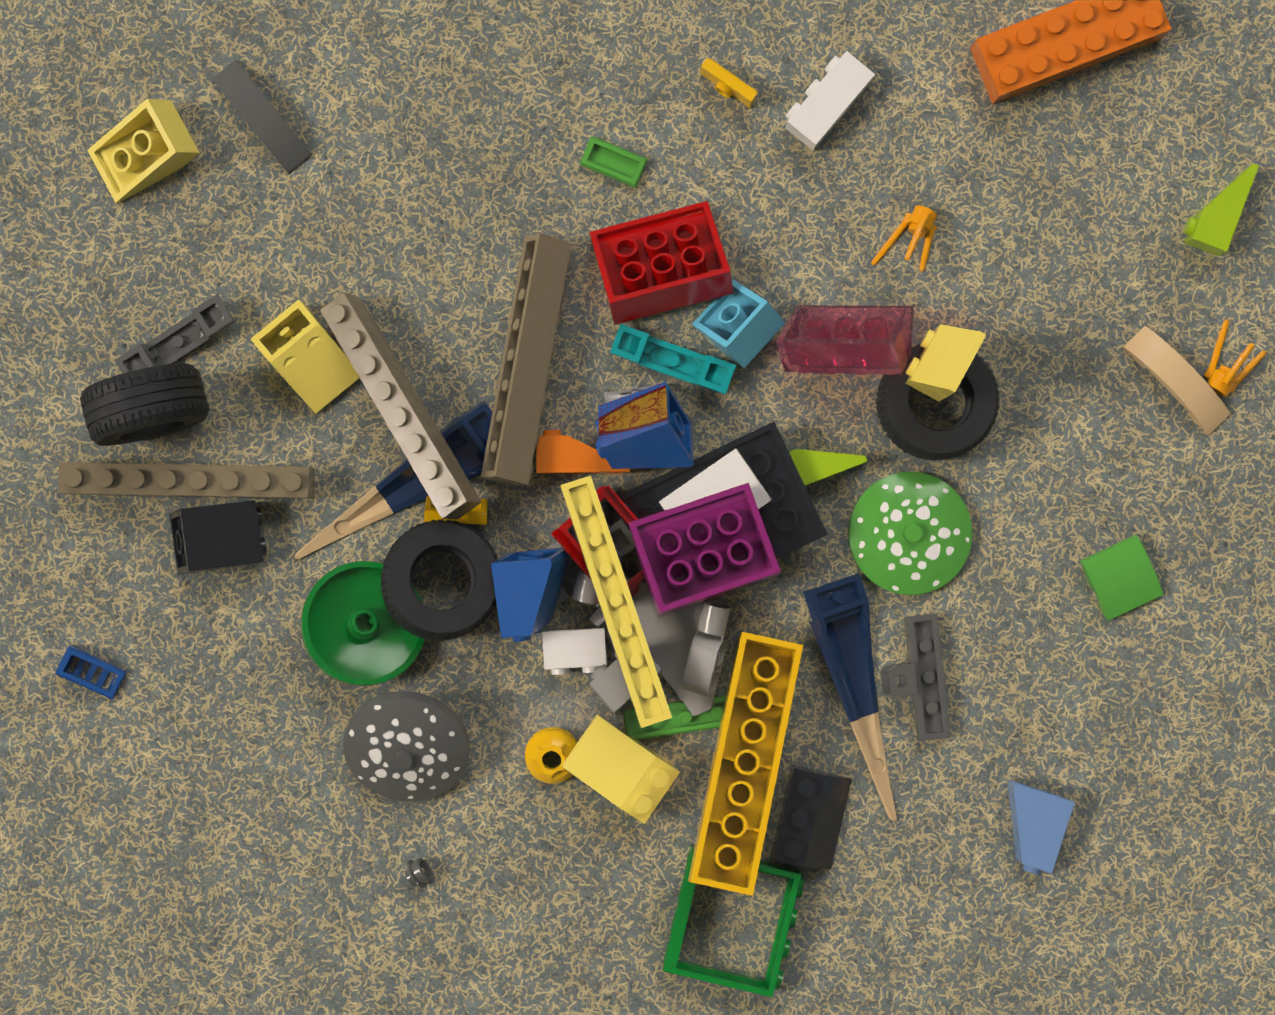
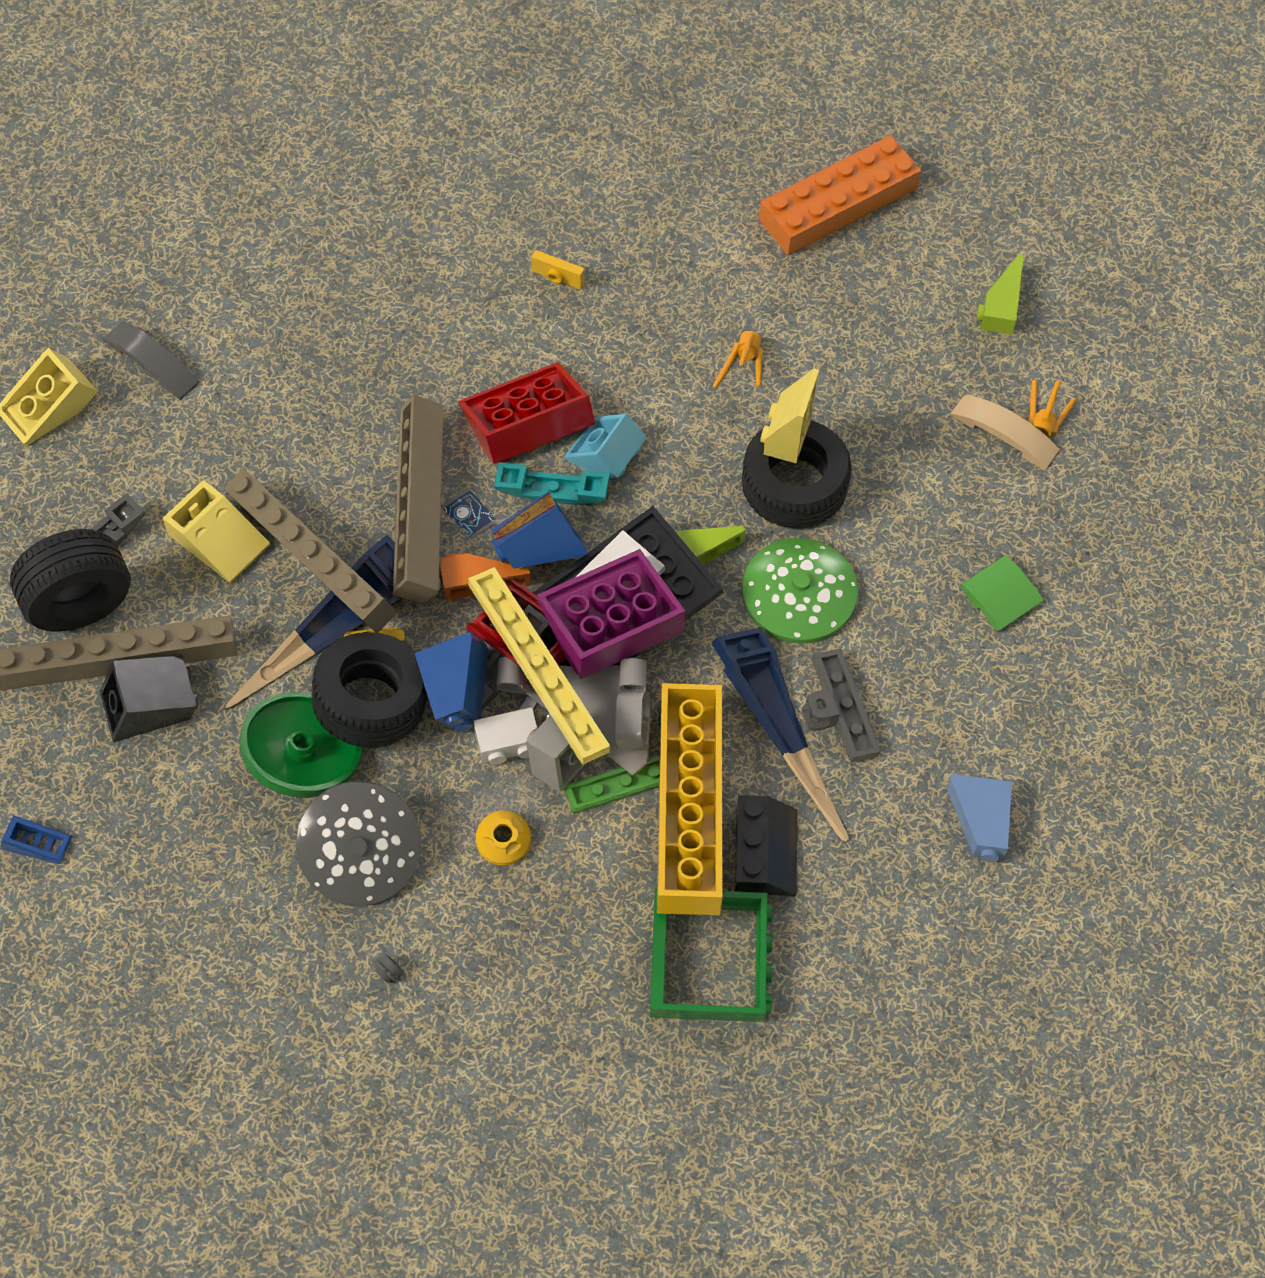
camera: 10 degrees left, 25 degrees down
(579, 374) = (469, 513): none -> dark blue sticker
(613, 162) = (469, 345): bright green tile -> none
(621, 768) = (572, 829): light yellow slope -> none
(828, 99) = (647, 269): white brick -> none
(847, 339) = (703, 435): clear pink slope -> none

